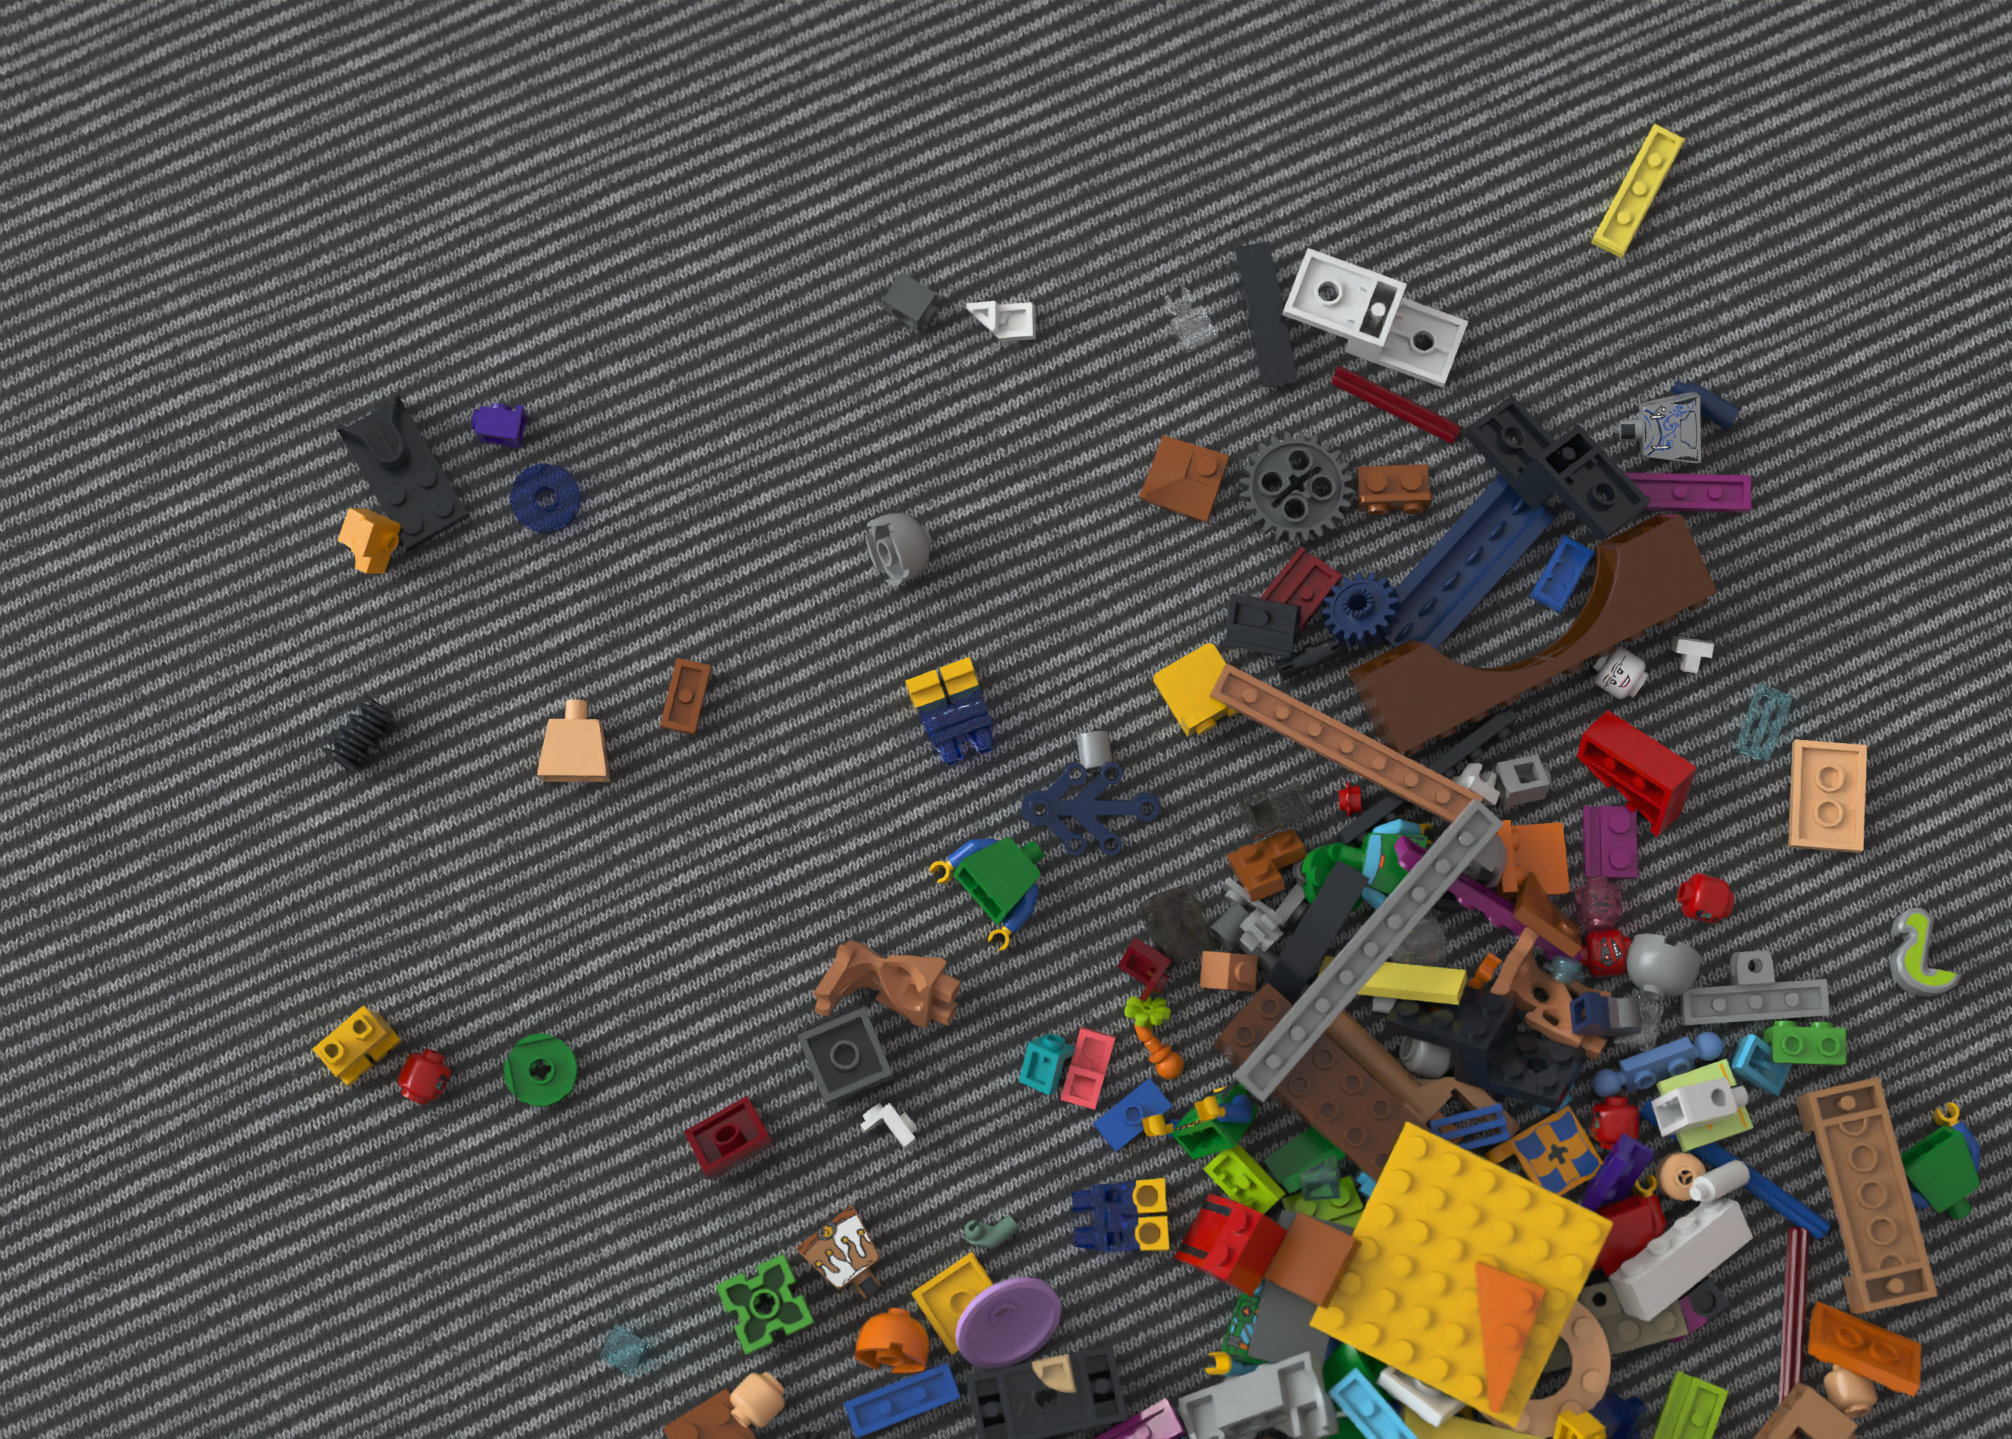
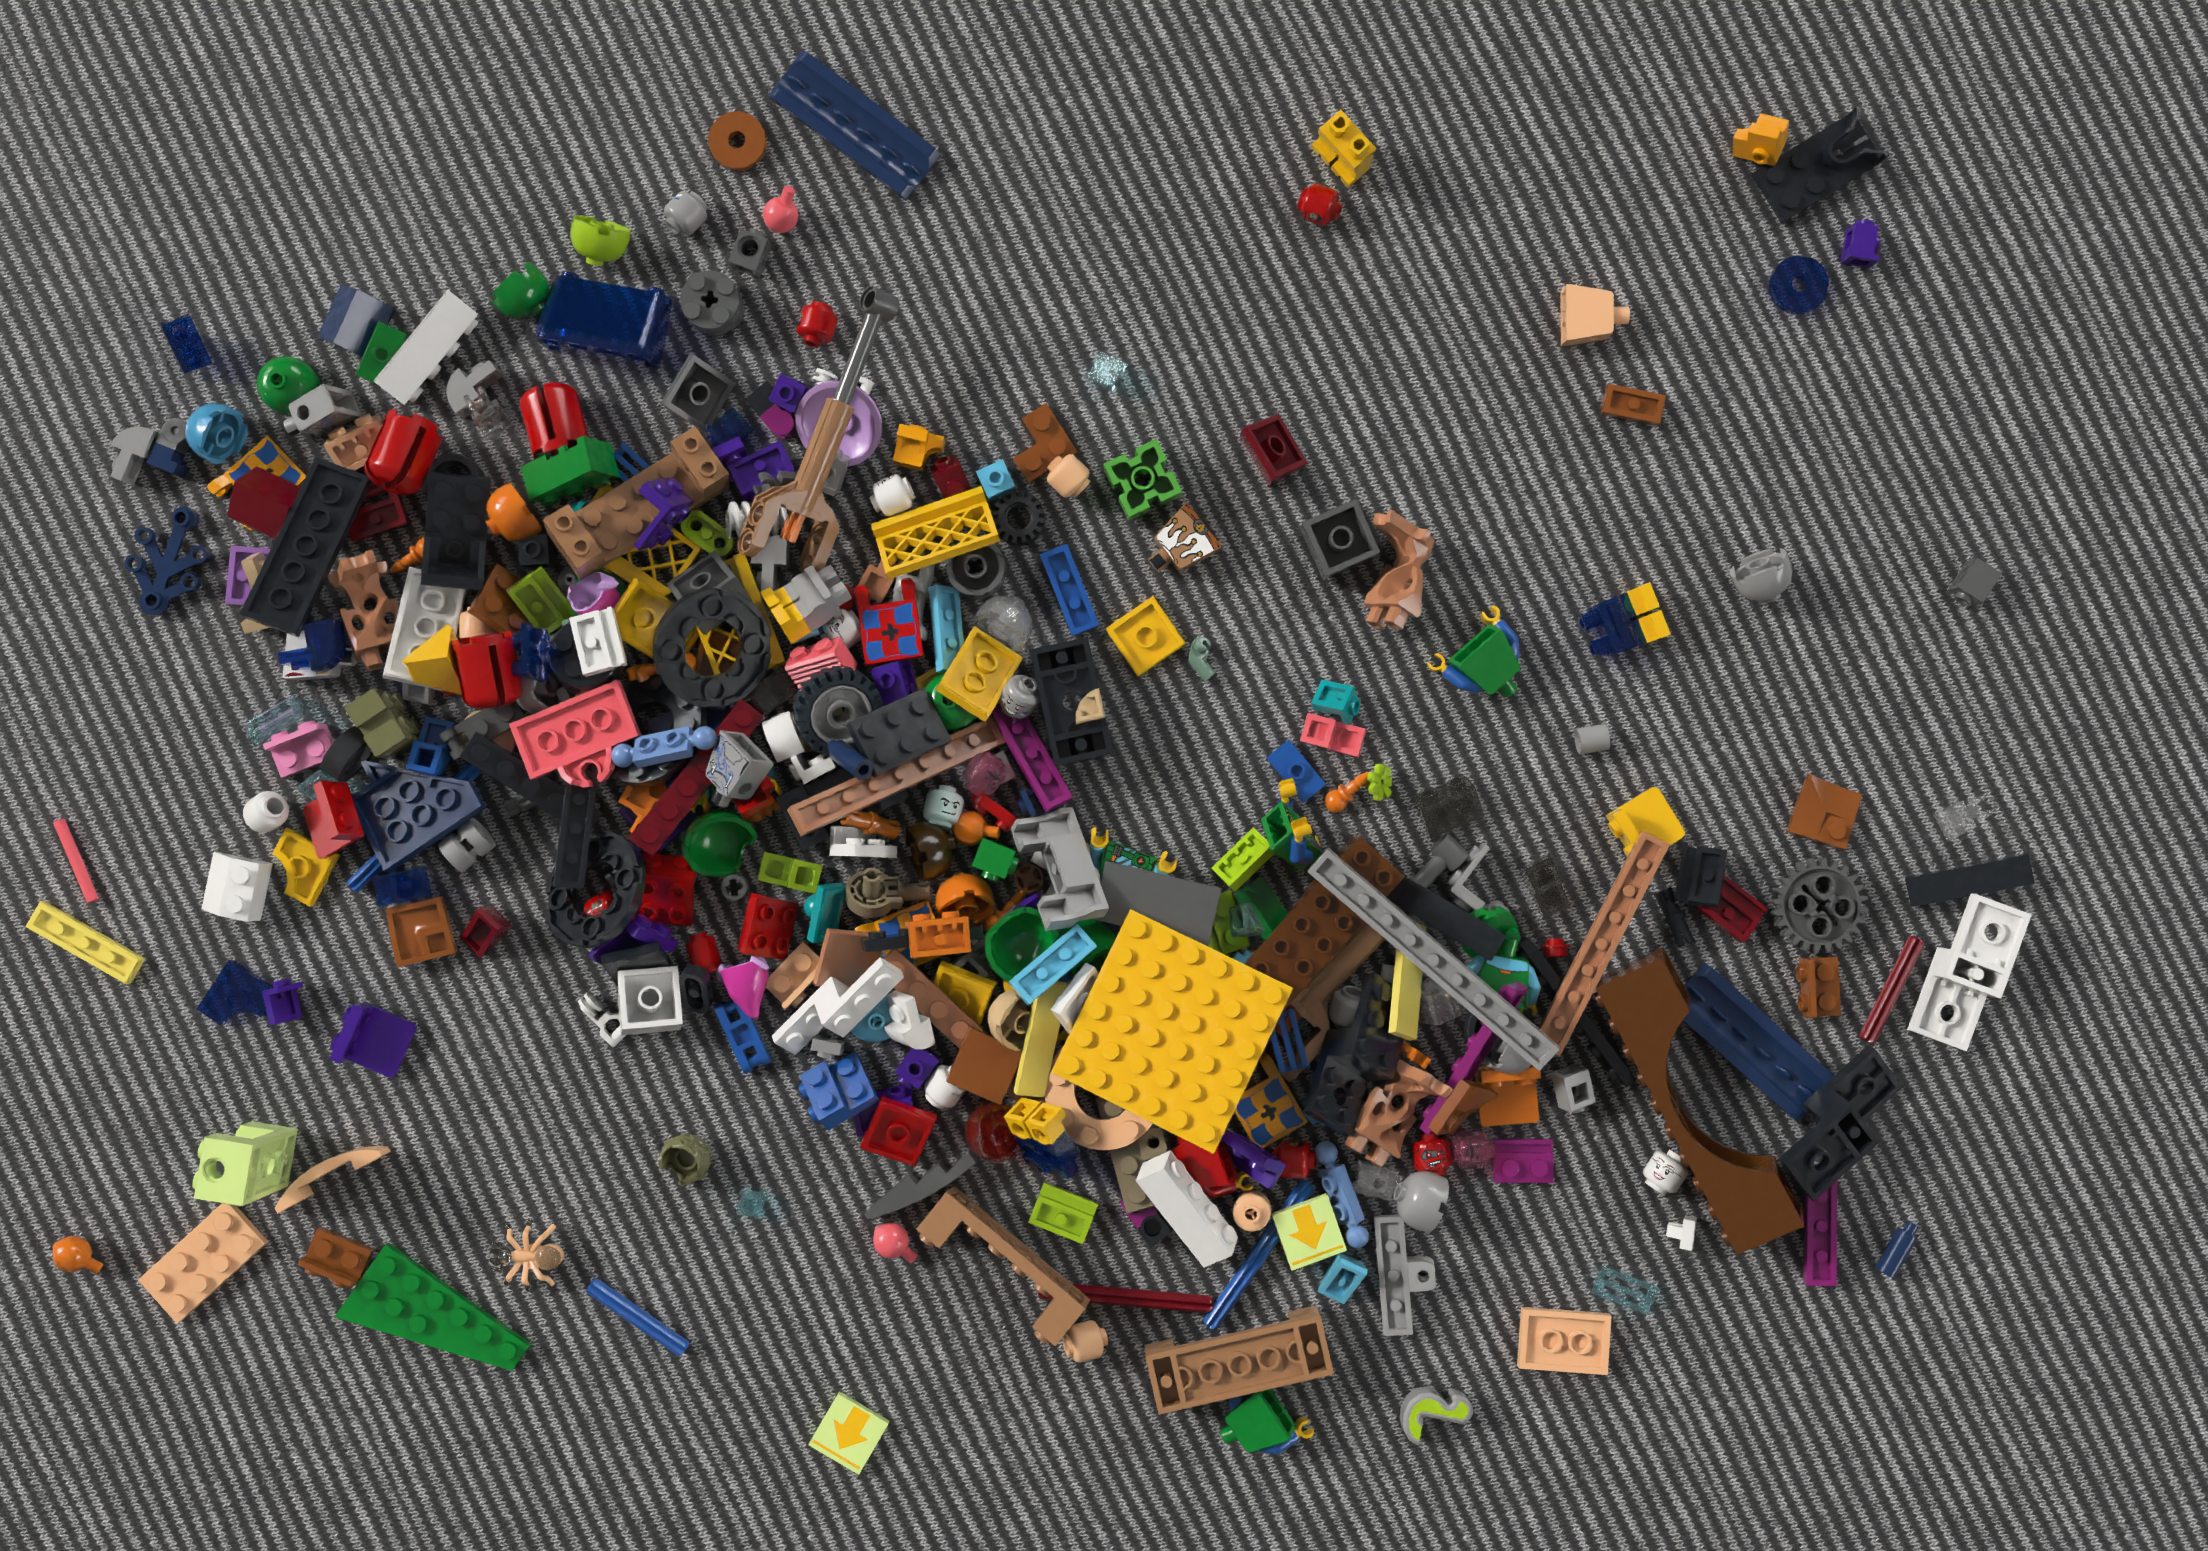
camera: 90 degrees right, 10 degrees up
(361, 735) = (1597, 141): black piece -> none
(524, 1058) = (1334, 284): green plate -> none
(893, 1341) = (1114, 581): orange cylinder -> none
(900, 1126) = (1284, 585): white bracket -> none
(1006, 321) = (1958, 663): white slope -> none
(1008, 1322) = (1130, 671): lavender dish -> none
(1084, 807) = (1545, 730): dark blue plant -> none
(1113, 1221) = (1214, 754): clear blue hips -> none
(1146, 966) = (1416, 781): dark red bracket -> none
(1228, 971) = (1413, 847): nougat brick -> none
(1231, 1243) = (1194, 848): red slope -> none
(1258, 863) = (1501, 872): dark orange plate -> none
(1261, 929) = (1447, 873): light grey gear -> none
(1312, 1260) = (1181, 911): dark orange tile -> none
(1362, 610) = (1715, 958): dark blue gear -> none
(1484, 787) = (1567, 1058): white tile -> none
(1506, 1318) = (1138, 1066): orange wing -> none
(1562, 574) = (1748, 1126): blue plate -> none
(1565, 969) = (1418, 1120): clear light blue plate -> none
(1605, 1015) = (1381, 1152): leg -> none
(1638, 191) = (2084, 1198): light yellow tile -> none
(1639, 768) = (1585, 1185): red wedge -> none
(1667, 428) = (1876, 1217): light grey torso -> none
(1698, 1105) = (1308, 1226): white torso -> none
(1705, 898) = (1477, 1237): red head -> none
(1719, 1181) = (1247, 1242): white cylinder -> none
(1806, 1045) = (1358, 1316): bright green bracket -> none
(1865, 1349) = (1116, 1354): orange plate -> none

